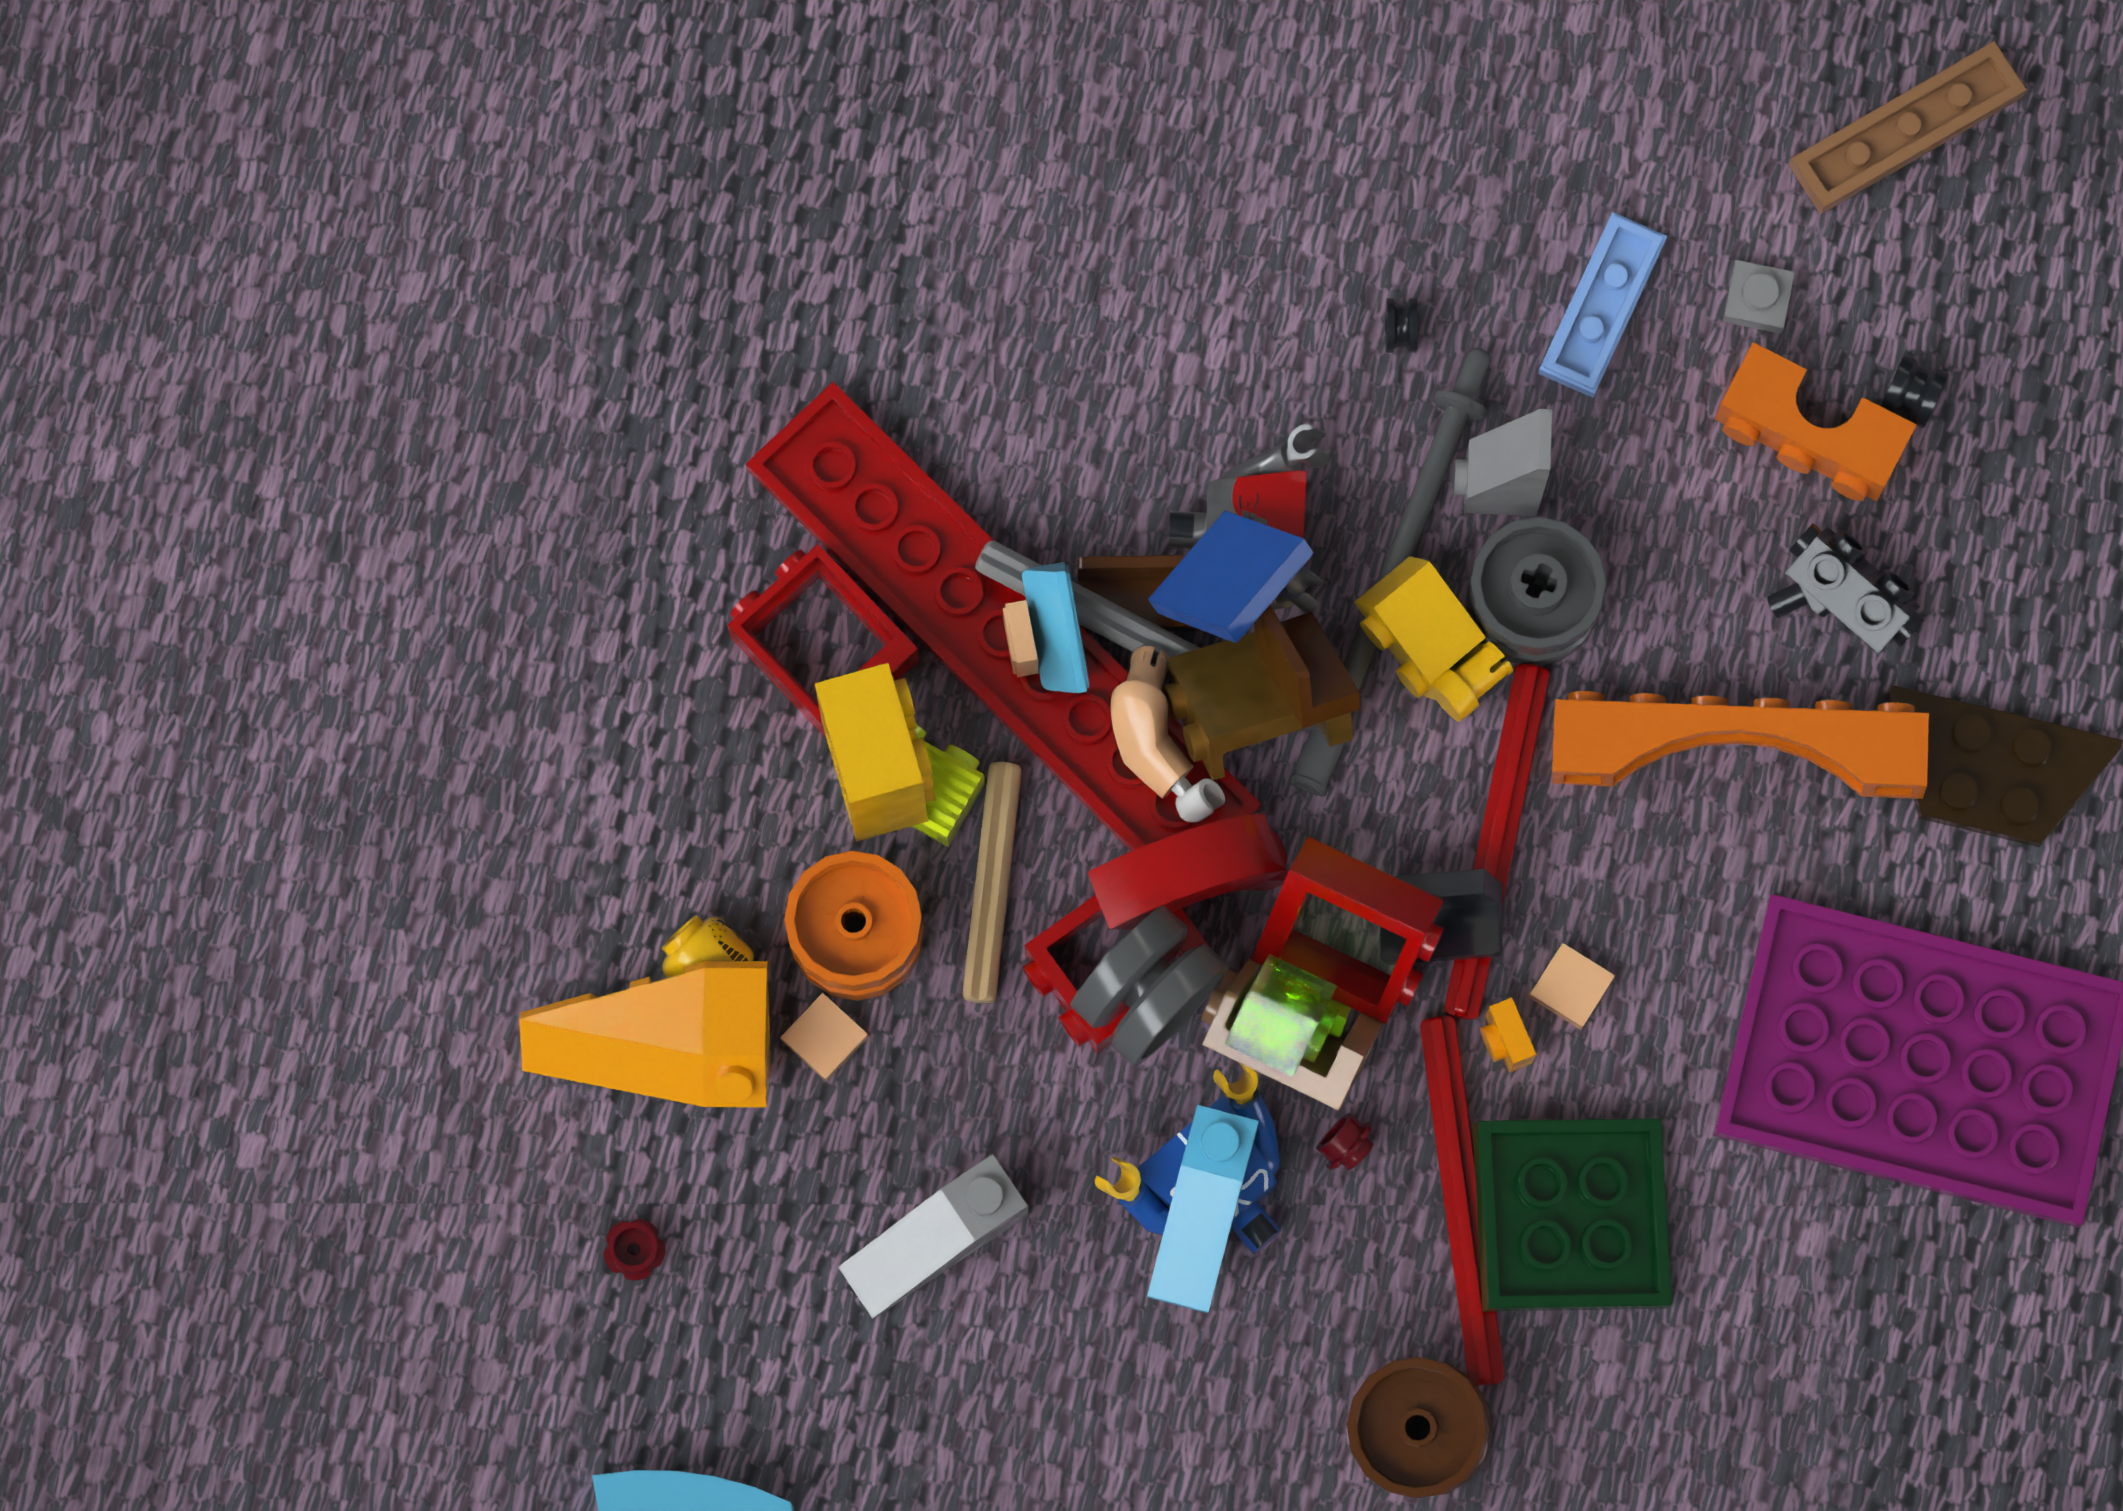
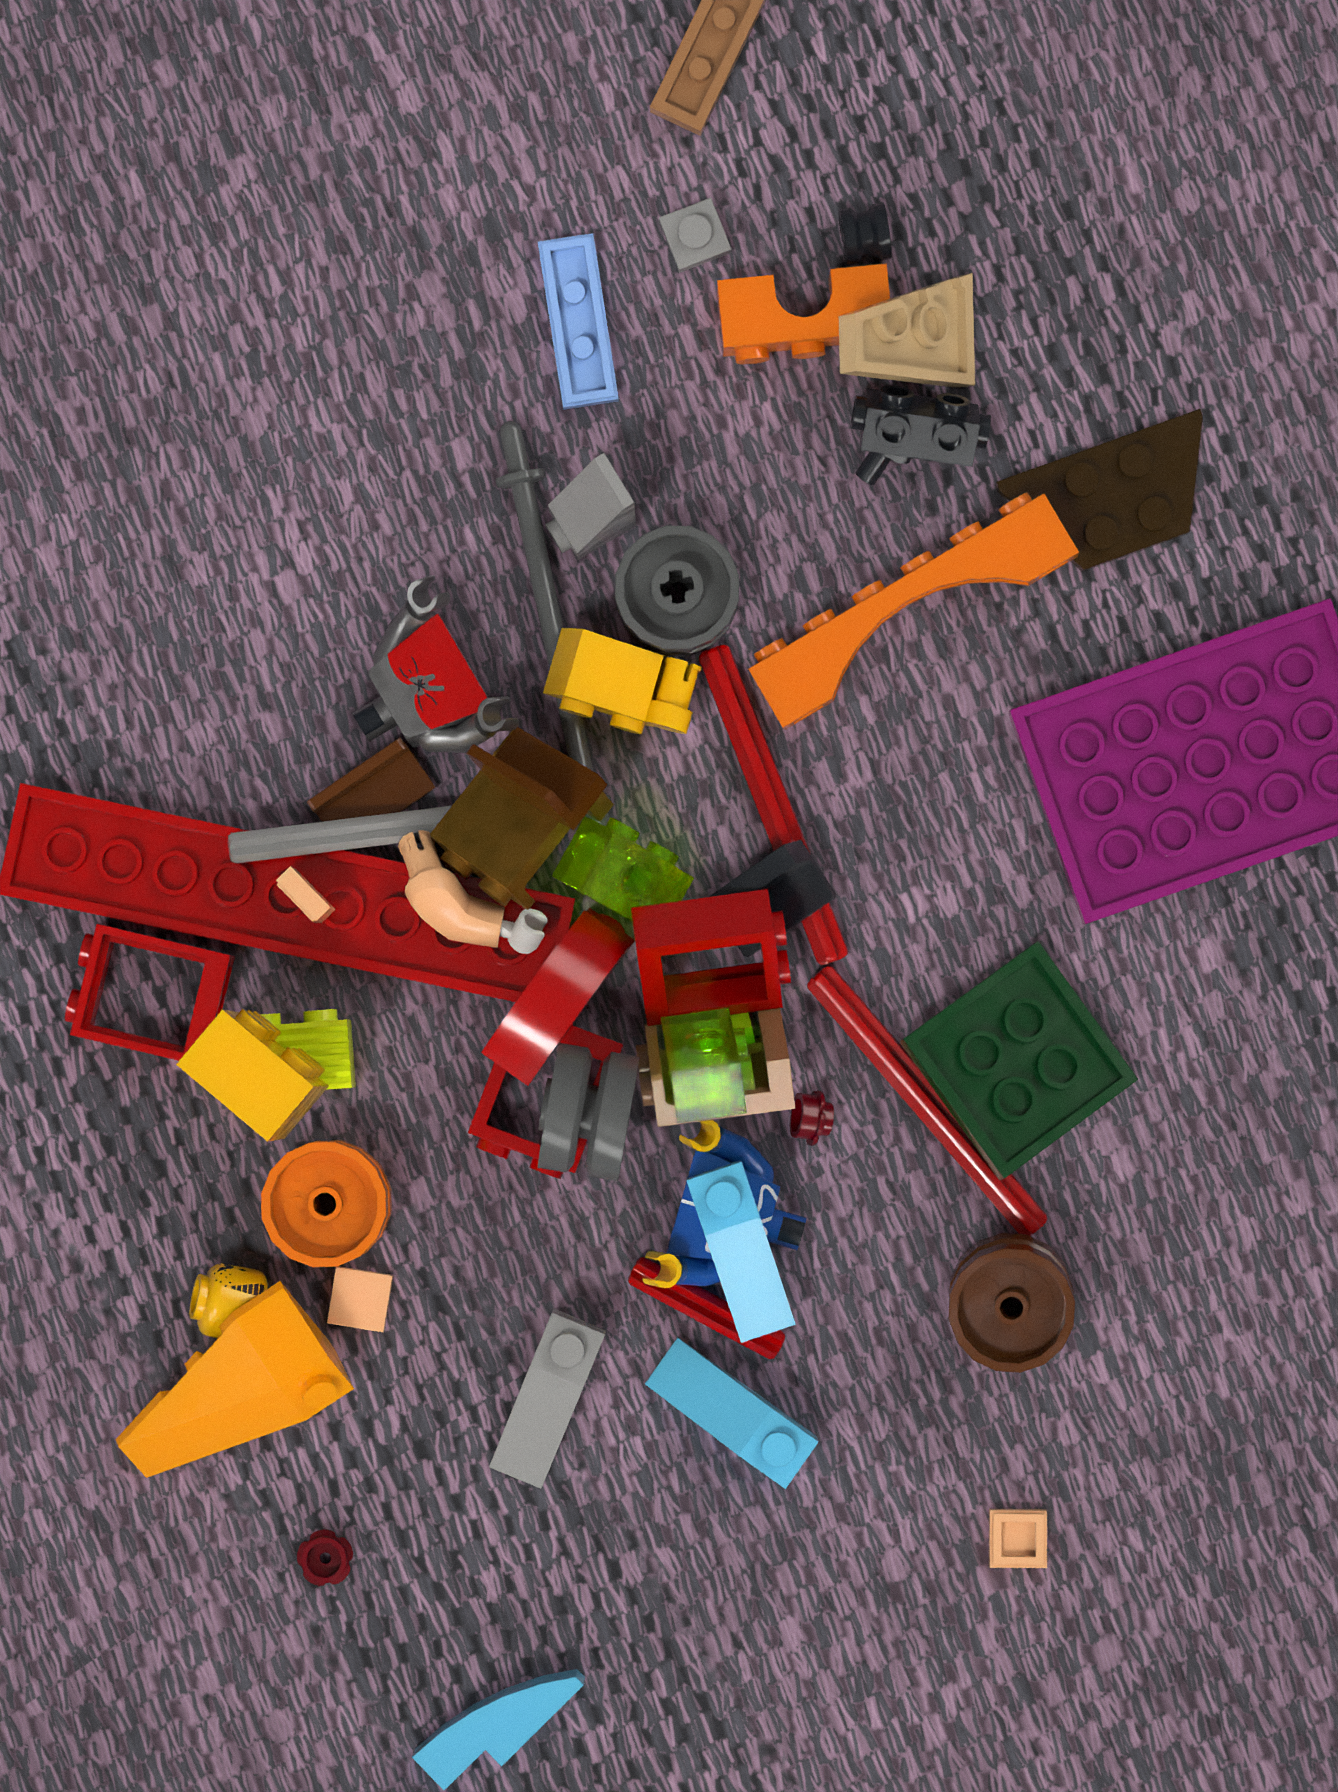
camera: 30 degrees left, 10 degrees up
(992, 882) = (408, 1093): tan axle -> none
(1056, 628) = (328, 869): medium azure slope -> none
(1095, 1363) = (732, 1413): none -> medium azure slope
(1132, 1253) = (702, 1307): none -> red axle
(1231, 576) = (437, 745): blue tile -> none
(1303, 779) = (601, 856): none -> clear neon green brick
(1401, 325) = (433, 443): black bush -> none
(1506, 1036) = (880, 955): light orange plate -> none
(1571, 986) = (903, 880): light nougat tile -> none
(1899, 504) = (914, 336): none -> tan wing

